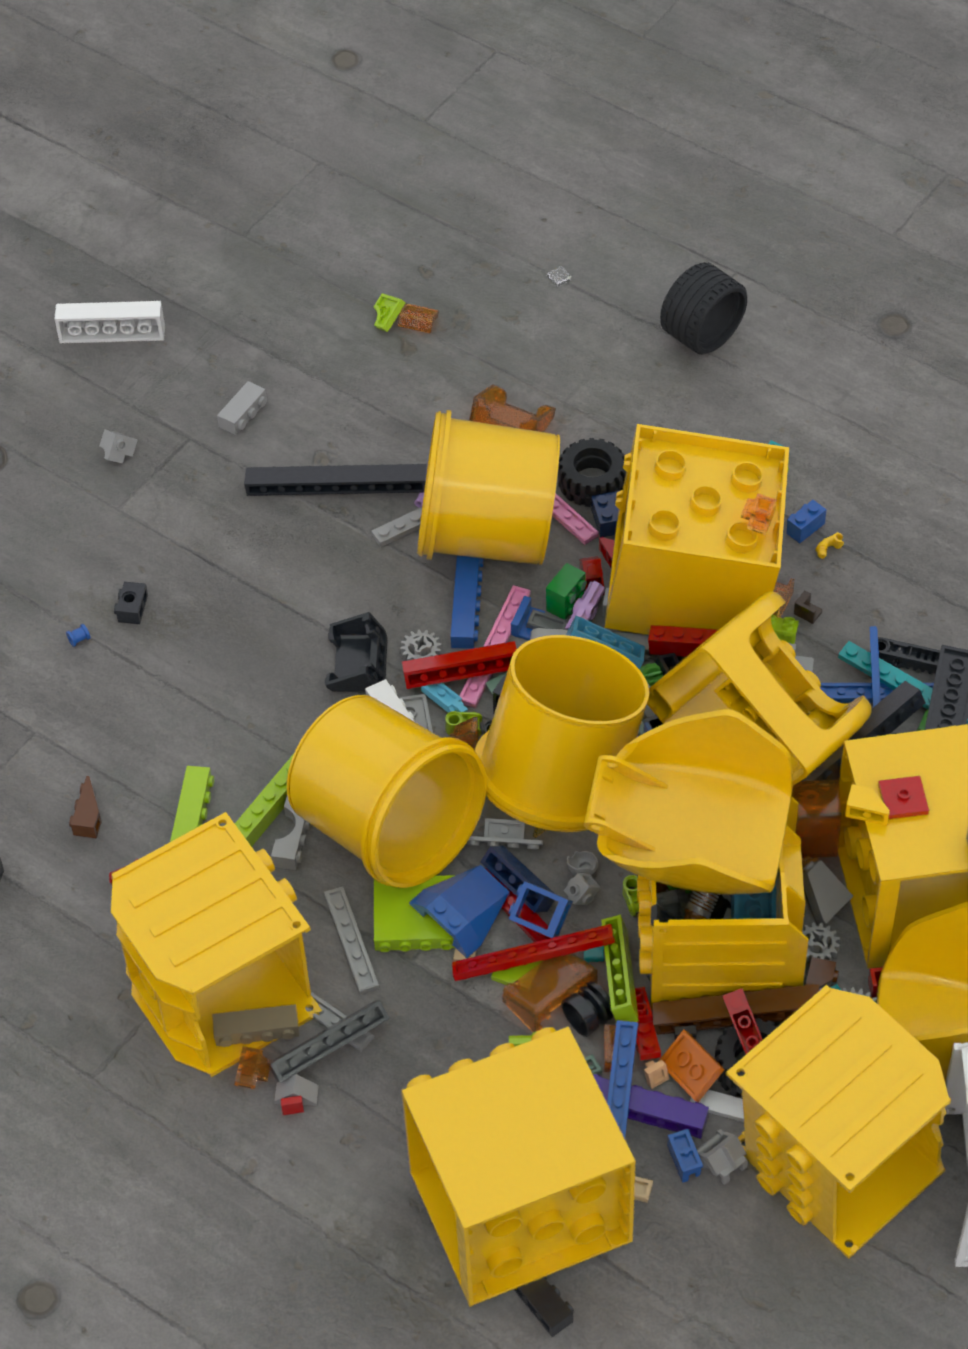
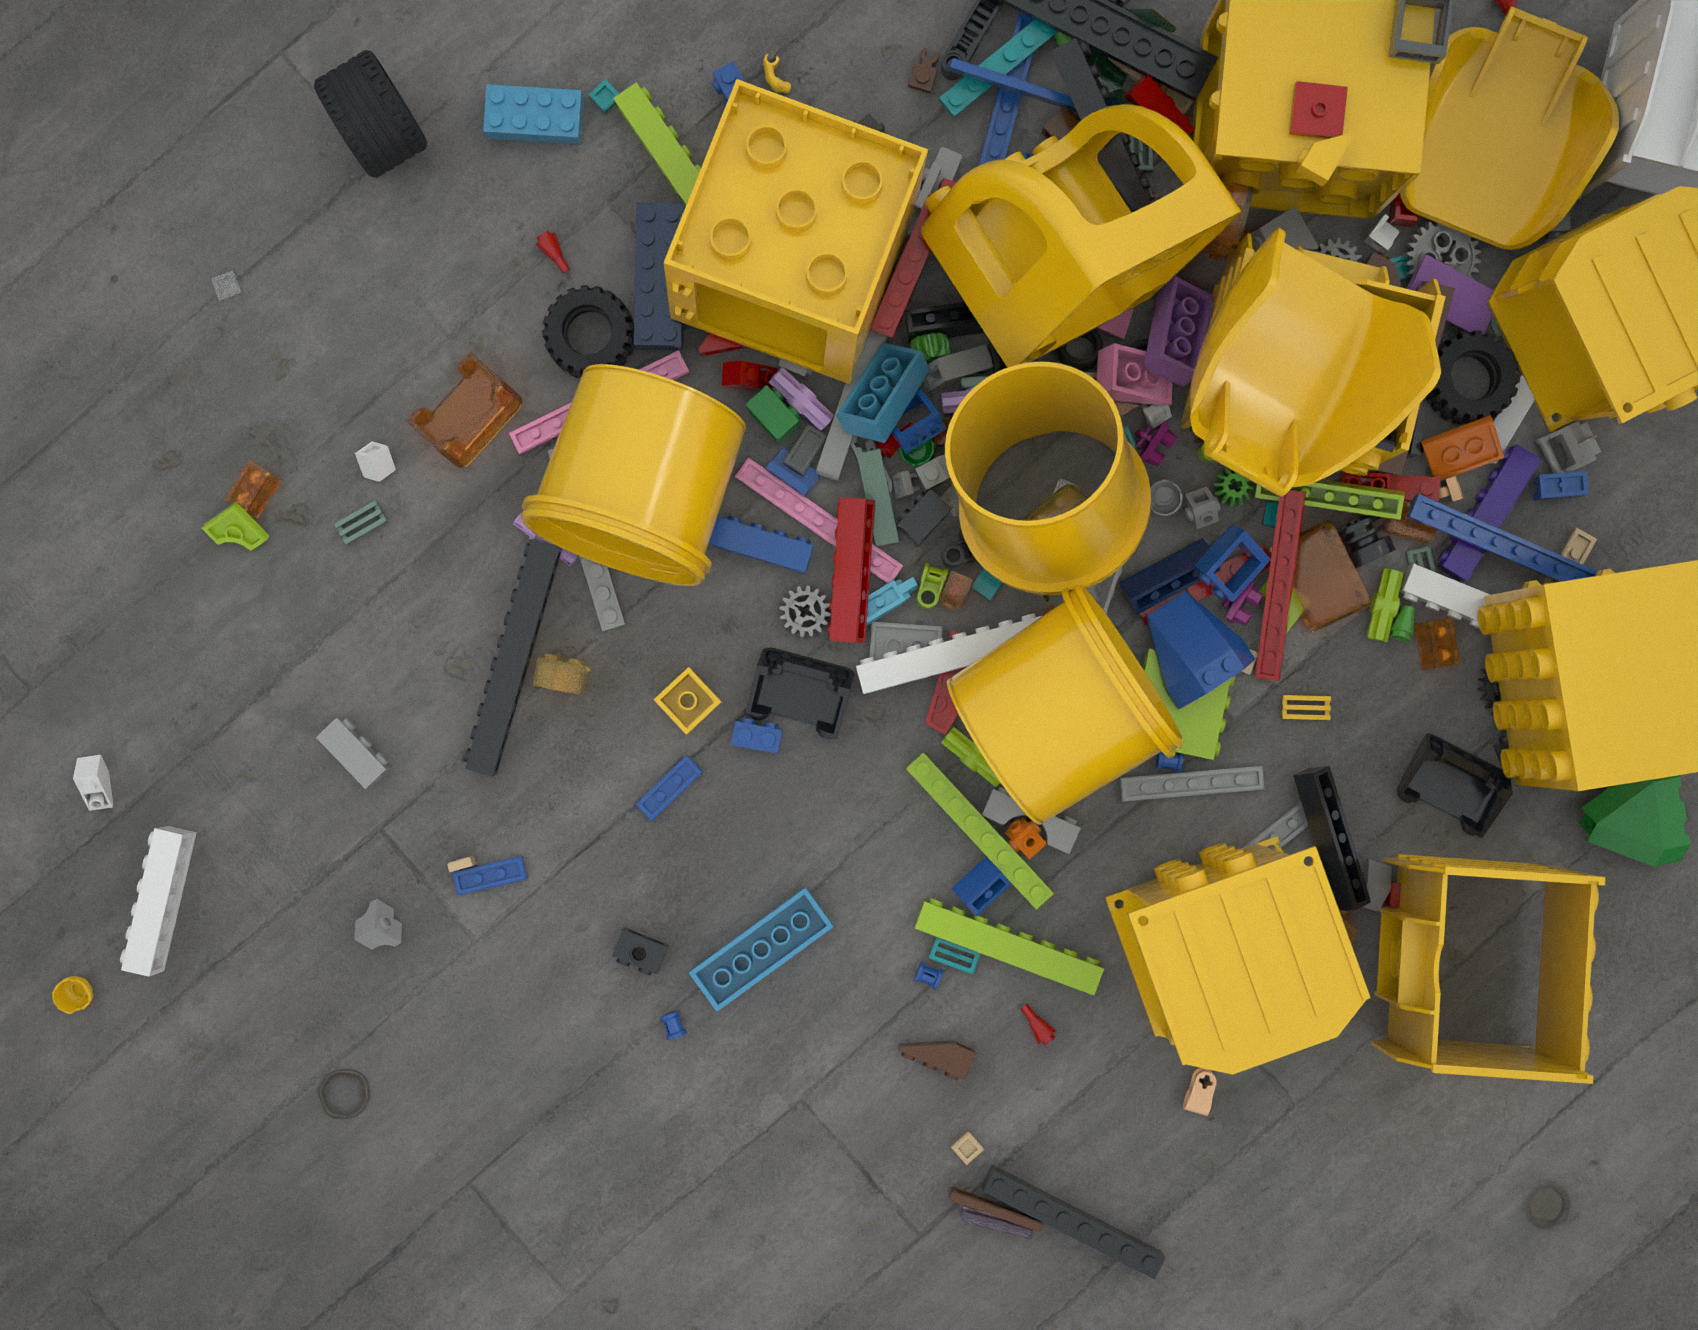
camera: 75 degrees left, 35 degrees up
(15, 848) = (967, 1147): none -> tan tile
(33, 293) = (72, 994): none -> yellow hair
(90, 999) = (1199, 1095): none -> light nougat piece
(150, 673) = (761, 948): none -> dark azure brick
(154, 789) = (936, 974): none -> blue bush
(169, 506) = (490, 875): none -> blue tile
(169, 819) = (935, 947): none -> teal tile
(174, 484) = (461, 863): none -> tan tile
(186, 275) = (93, 782): none -> white slope
(227, 801) = (981, 886): none -> blue brick
(229, 1084) = (1410, 972): none -> yellow container
(262, 597) = (669, 787): none -> blue tile
(277, 825) = (1025, 837): none -> orange brick
(314, 638) = (757, 737): none -> blue brick
(330, 508) = (561, 676): none -> clear yellow brick
(331, 588) = (688, 700): none -> yellow brick
(365, 916) = (1174, 763): none -> blue bush
(389, 1142) = (1456, 784): none -> black windscreen
(406, 1280) = (1640, 821): none -> green panel
(414, 378) = (343, 532): none -> sand green tile
(434, 994) = (1327, 708): none -> yellow tile
(459, 377) = (375, 461): none -> white panel
(510, 935) = (1236, 612): none -> magenta hips
(606, 908) = (1229, 494): none -> bright green gear
(742, 1019) = (1459, 377): red slope -> none
(743, 409) = (534, 114): none -> dark azure brick
(759, 513) = (847, 149): clear orange brick -> none
(855, 973) = (1382, 235): none -> white panel
(862, 636) = (924, 74): none -> reddish brown plate

